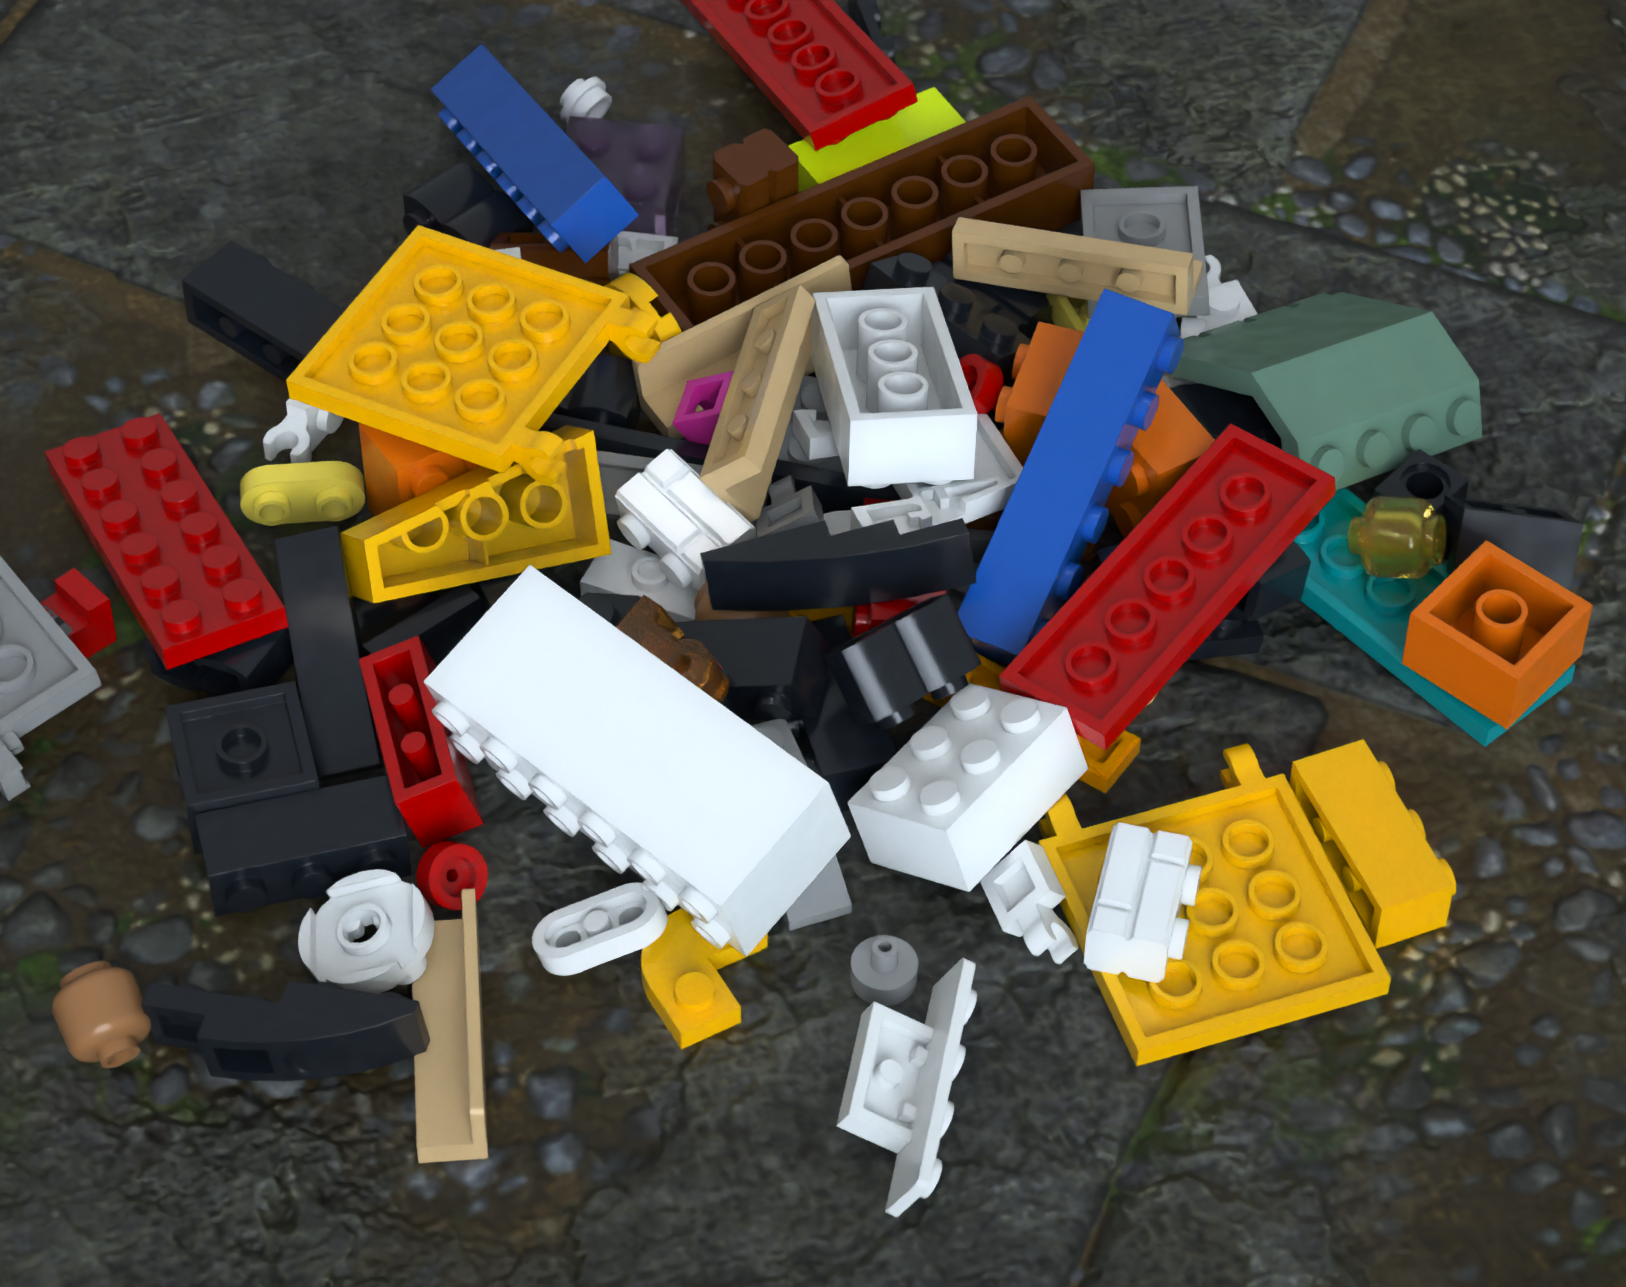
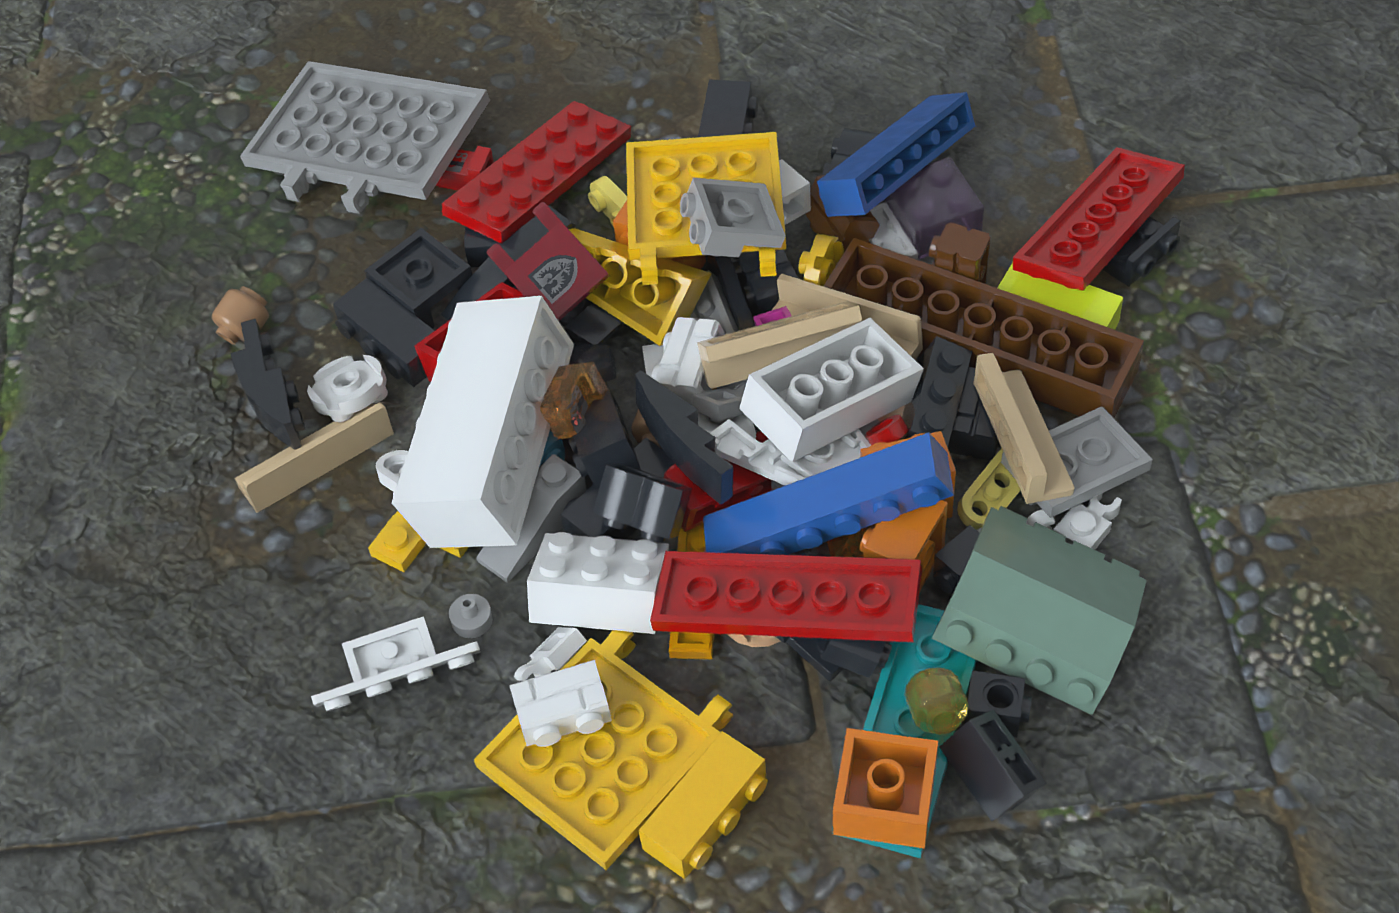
camera: 65 degrees right, 5 degrees up
(423, 573) = (553, 267): none -> dark red flag
(447, 870) = (406, 399): red tile -> none
(565, 318) = (730, 216): none -> light grey plate
(585, 99) = (987, 163): white plate -> none

